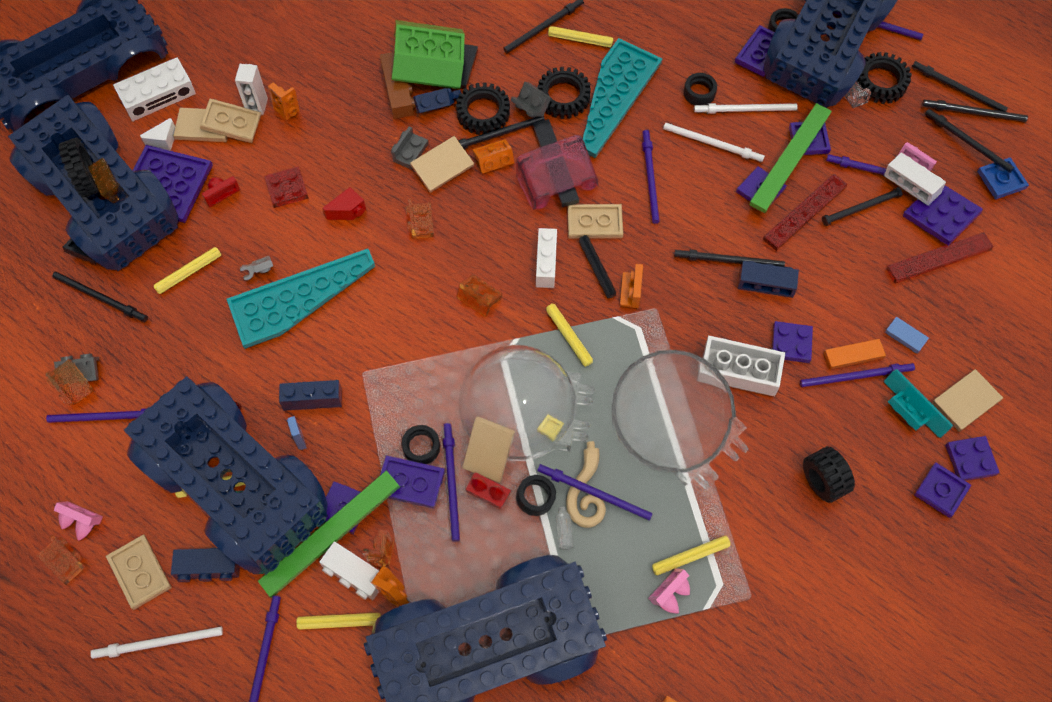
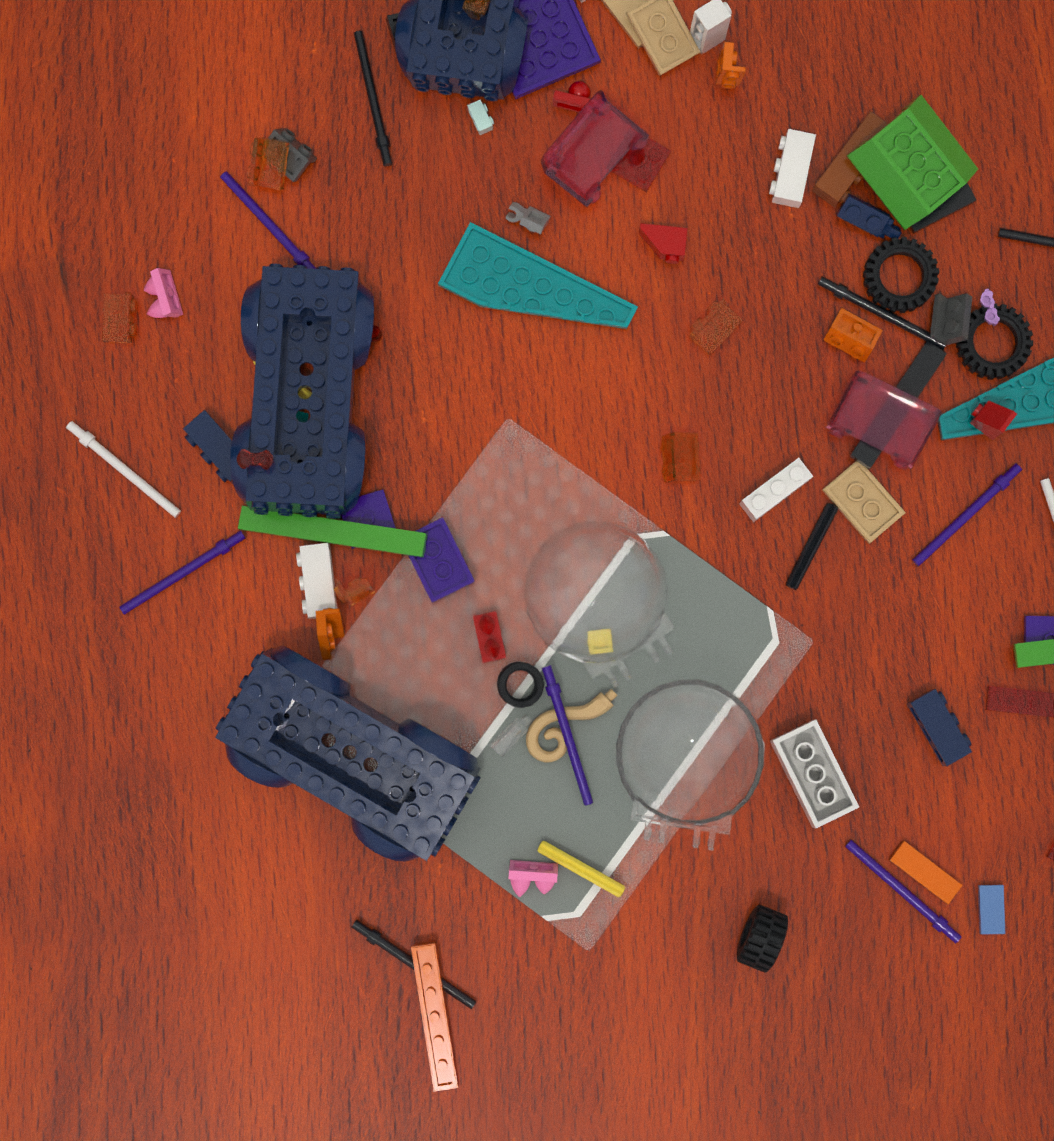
camera: 50 degrees right, 20 degrees up
(138, 572) = (165, 394): tan tile -> none
(174, 248) = (480, 117): none -> light aqua piece
(187, 270) = (469, 153): light yellow axle -> none
(229, 533) = (263, 459): none -> clear red piece
(253, 196) = (592, 147): none -> clear pink windscreen
(296, 433) = (395, 417): tile -> none
(310, 395) = (443, 393): dark blue brick -> none
(335, 621) = (268, 606): light yellow axle -> none
(371, 115) = (792, 168): none -> white brick
(408, 148) = (787, 242): dark grey bracket -> none
(416, 431) = (475, 521): black tyre -> none
(442, 164) = (796, 292): tan tile -> none
(448, 445) = (503, 563): dark purple bar -> none
(488, 449) = (522, 608): tan tile -> none
(538, 76) = (988, 302): none -> lavender piece
(569, 335) = (710, 581): light yellow axle -> none
(608, 117) = (992, 419): none -> red slope
(631, 287) = (813, 600): orange bracket -> none
(693, 255) = (906, 631): black bar -> none
(793, 340) = (887, 802): dark purple plate -> none
(915, 406) = (910, 969): teal bracket -> none
(942, 490) = (842, 1054): dark purple plate -> none
(967, 400) = (964, 1016): tan tile -> none
(972, 458) = (901, 1061): dark purple plate -> none

